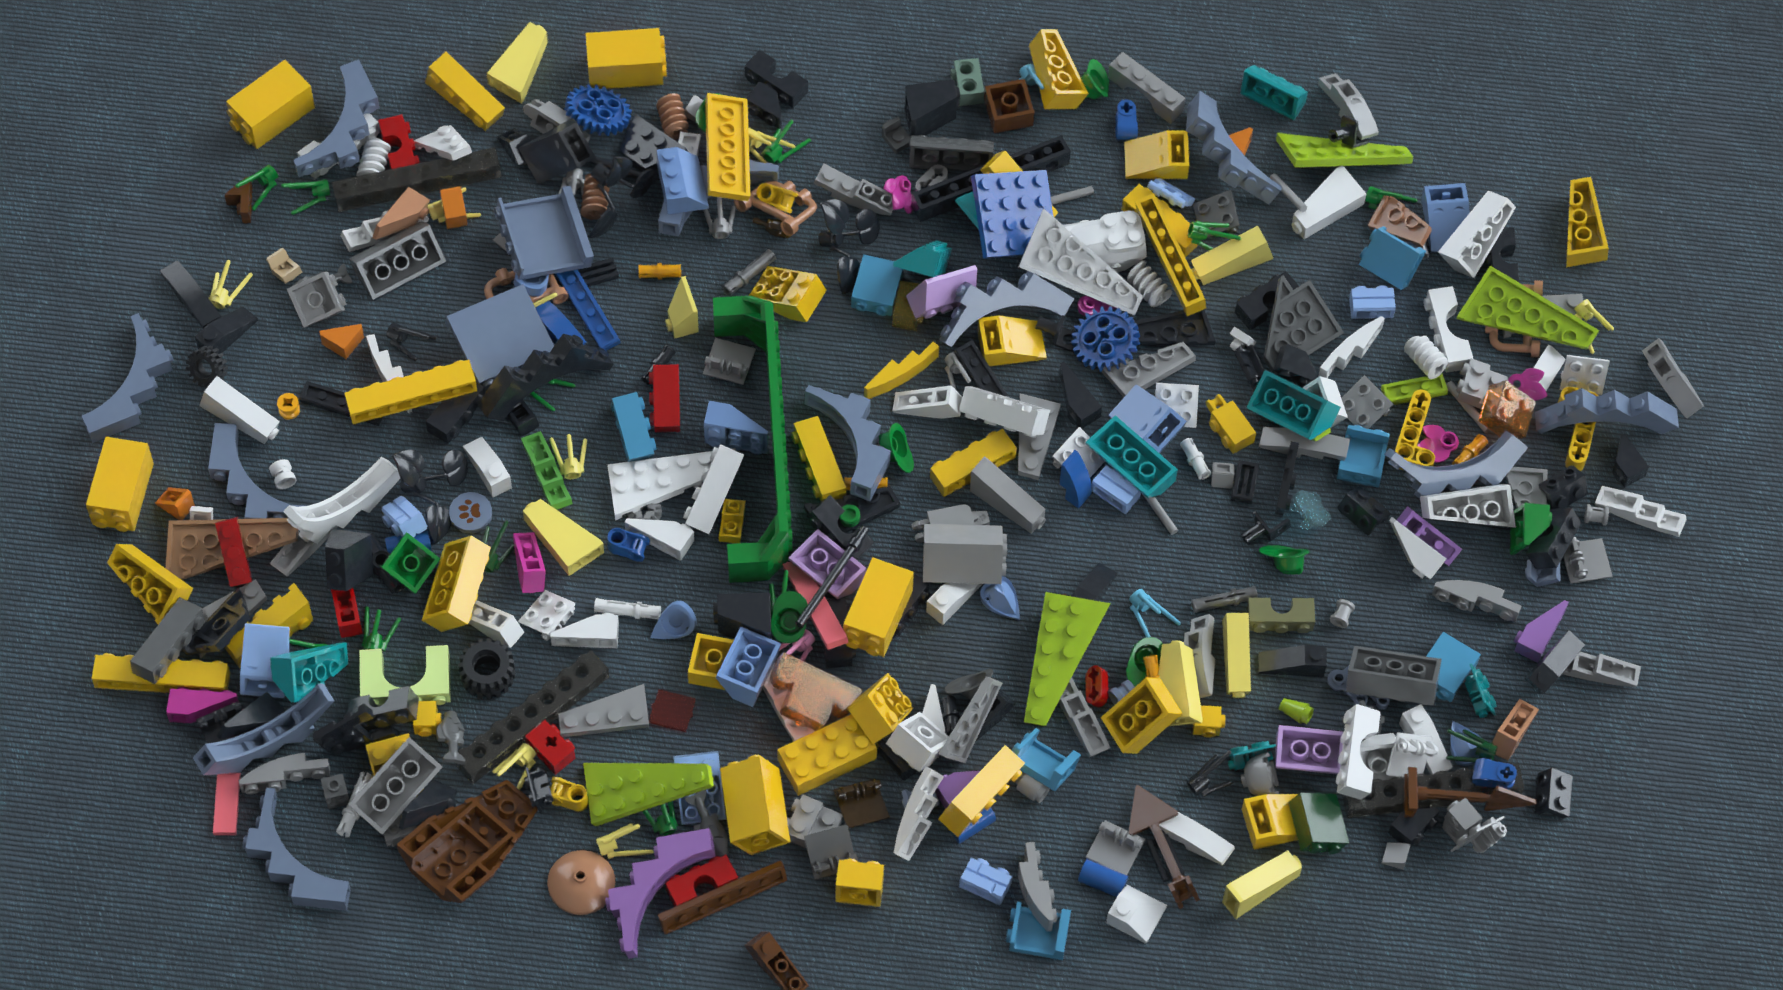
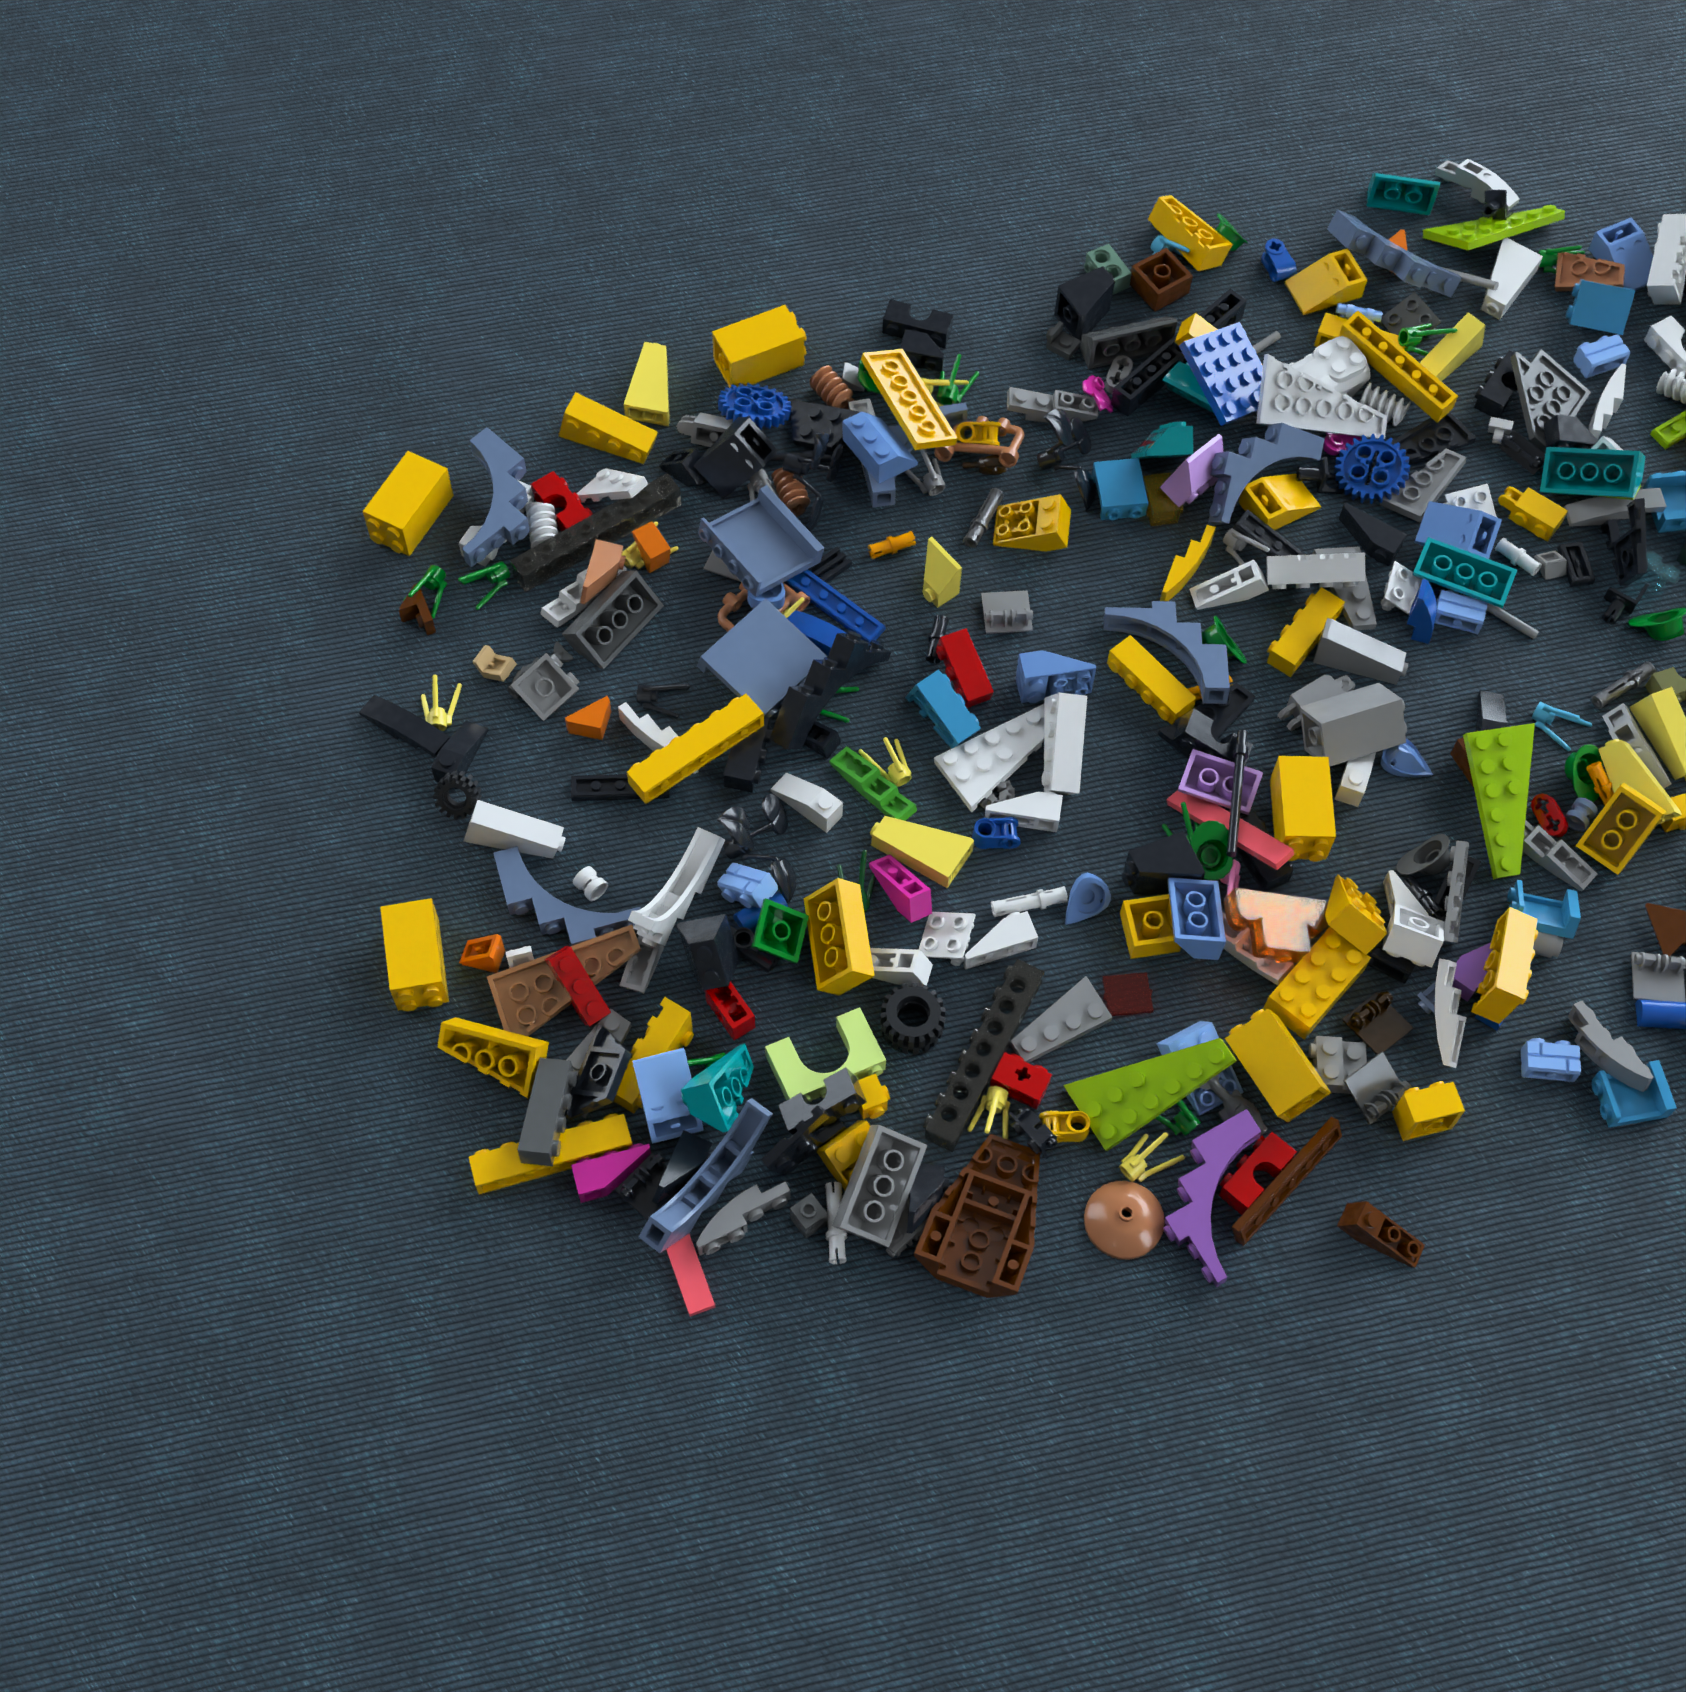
camera: 20 degrees left, 0 degrees up
(122, 408) = (380, 872): sand blue arch -> none
(288, 411) = (564, 815): light orange wheel -> none
(305, 886) = (828, 1337): sand blue arch -> none
(374, 640) = (773, 1031): green plant -> none
(452, 733) = (907, 1102): dark grey animal -> none
(470, 512) = (812, 856): sand blue tile -> none
(732, 521) = (1092, 774): yellow slope -> none
(755, 320) = (1033, 564): green arch -> none
(850, 516) = (1217, 726): green tile -> none
(1164, 99) = (1303, 228): light grey arch -> none
(1365, 403) = (1655, 446): light grey hinge -> none

